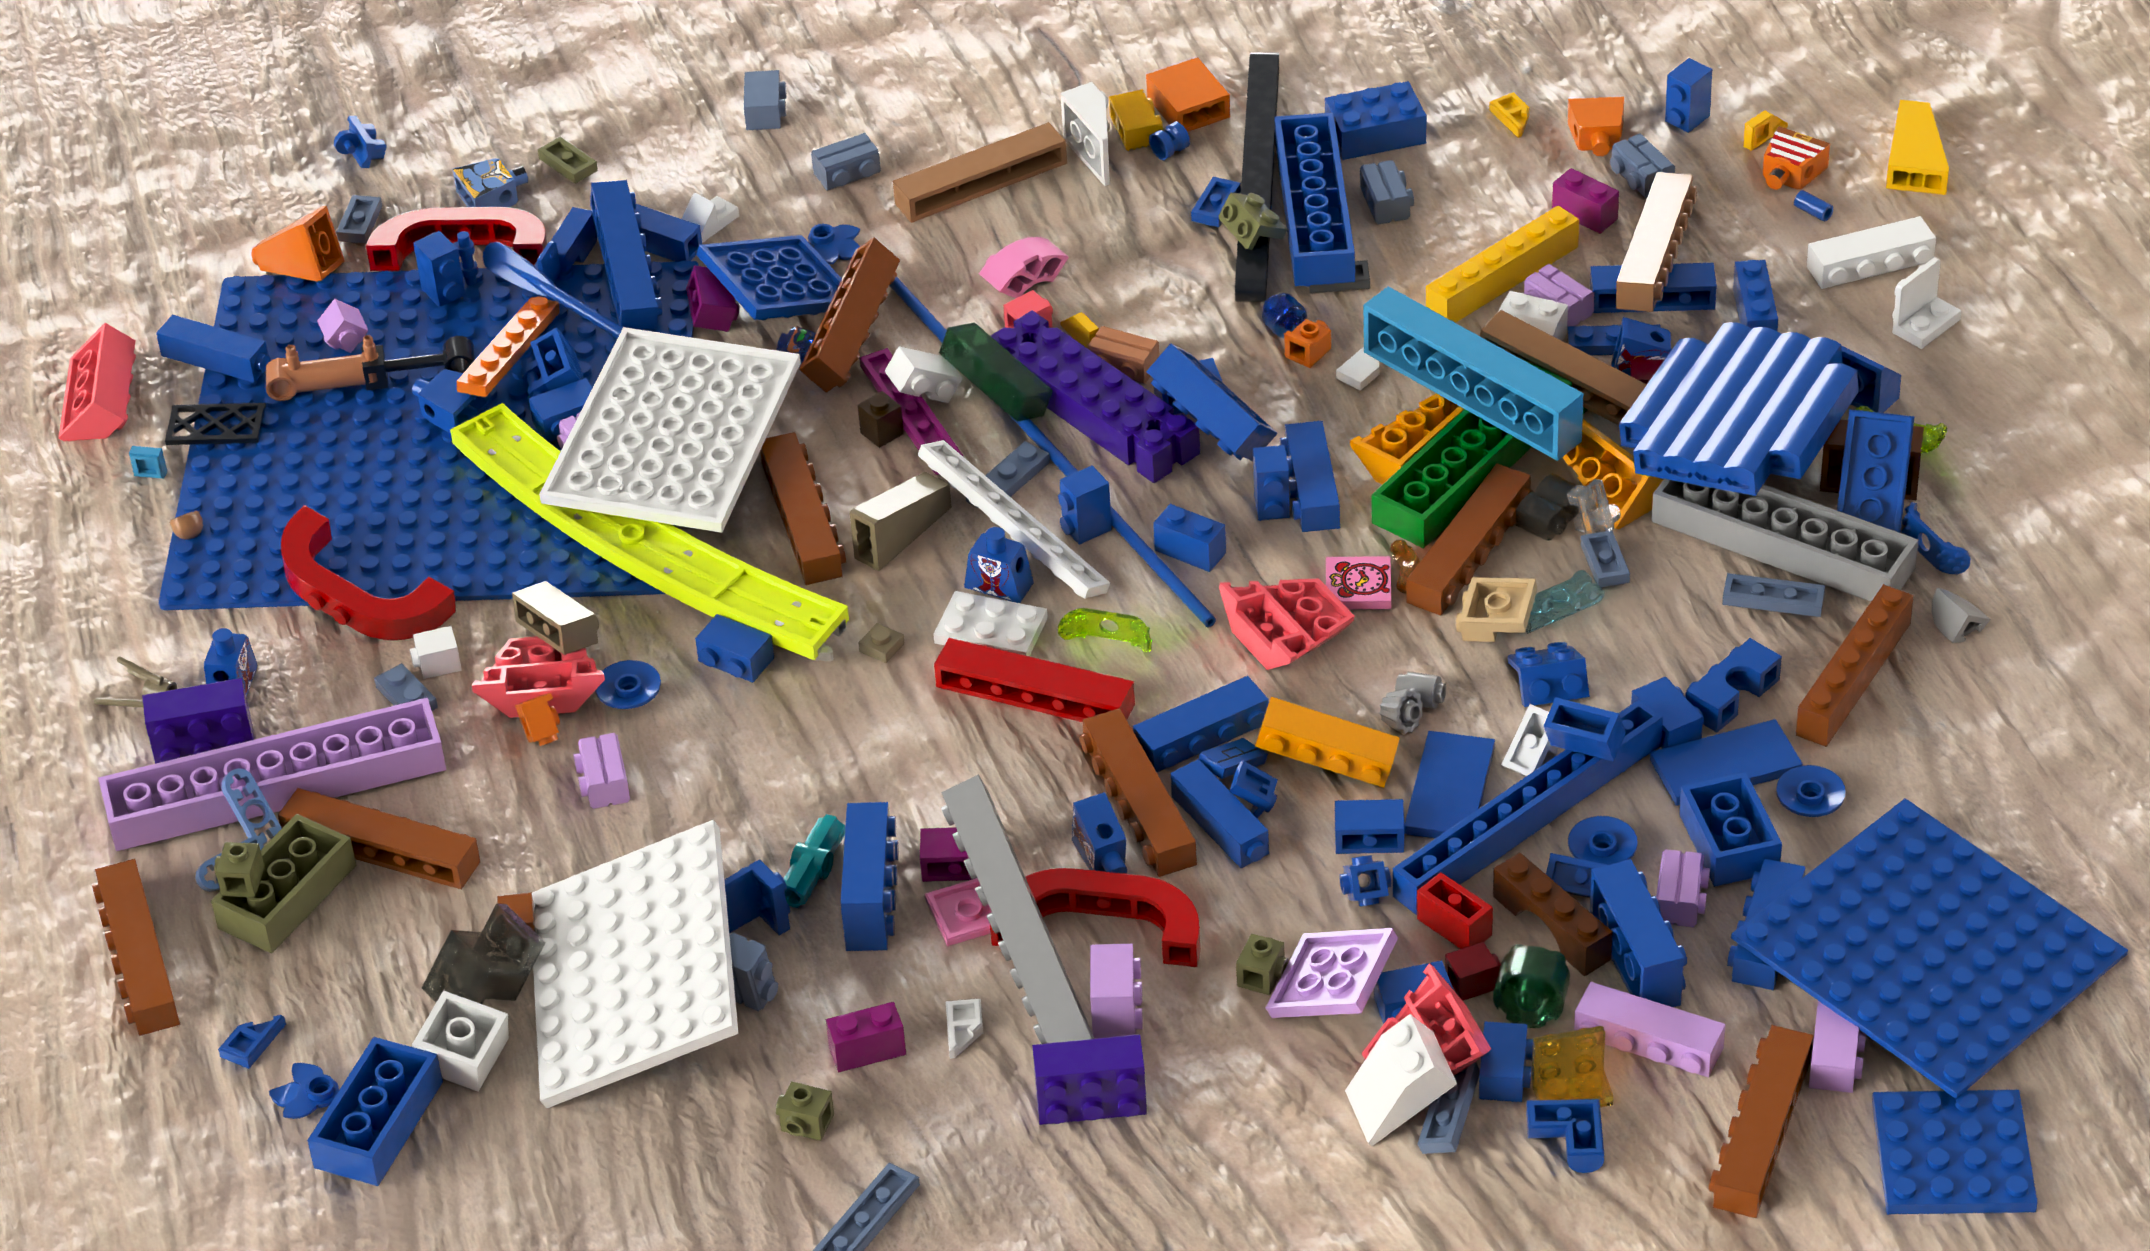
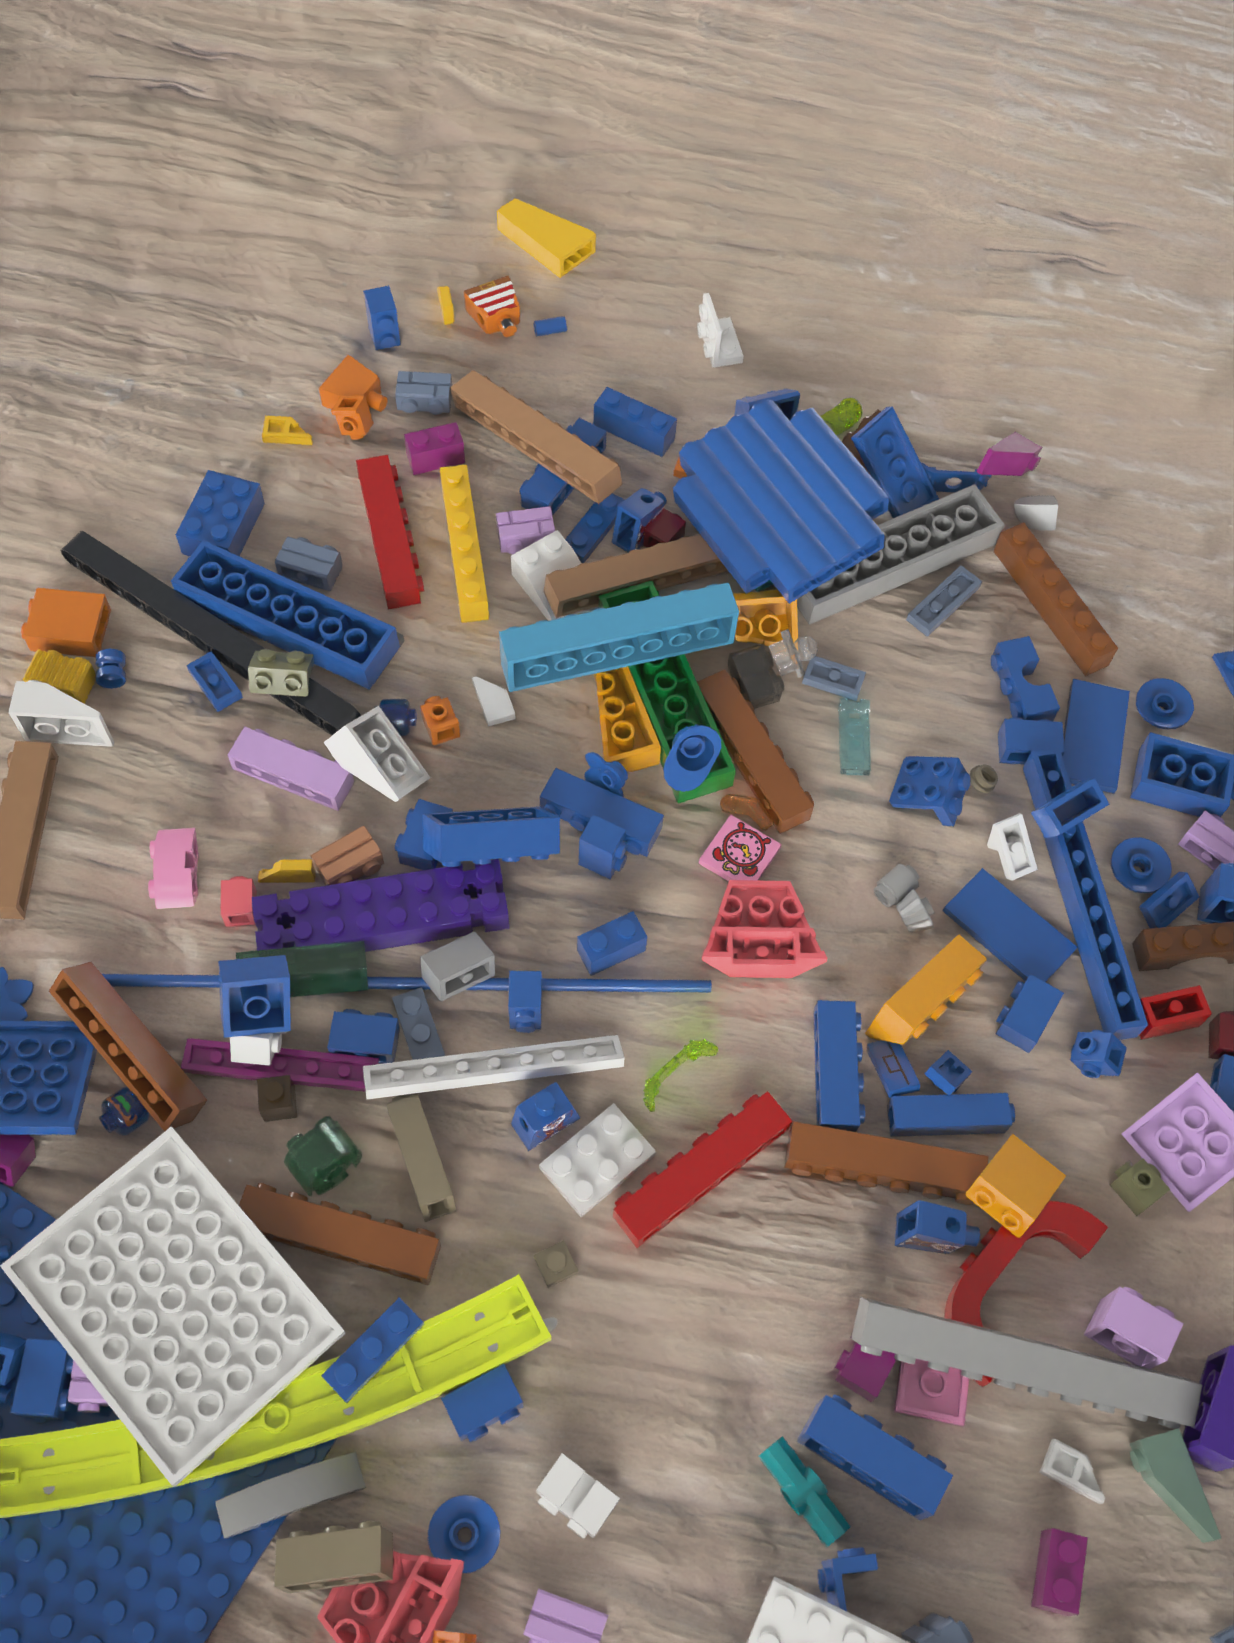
camera: 65 degrees left, 20 degrees up
(590, 577) = (289, 1493): none -> light grey slope
(704, 733) = (577, 1497): none -> white brick
(721, 552) = (372, 1350): none -> blue plate
(851, 460) = (321, 1156): none -> clear green brick
(938, 335) = (254, 996): none -> blue brick
(976, 438) = (364, 1035): none -> blue brick
(1003, 1087) = (1171, 1475): none -> sand green slope
(1076, 450) = (457, 966): none -> light grey brick
(1177, 283) = (290, 768): none -> lavender brick
(1184, 864) = (1015, 1186): none -> light orange panel
(1231, 314) = (377, 755): none -> white slope
(1342, 453) = (605, 774): none -> blue plate
(1397, 474) = (691, 757): none -> blue piece
(1467, 219) = (388, 532): none -> red brick
(1495, 607) = (850, 780): tan plate -> none
(1563, 135) = (353, 416): none -> orange brick
(1595, 693) = (983, 778): none -> dark tan plate
(1871, 252) = (632, 327): white brick -> none
(1987, 554) = (1011, 457): none -> magenta slope

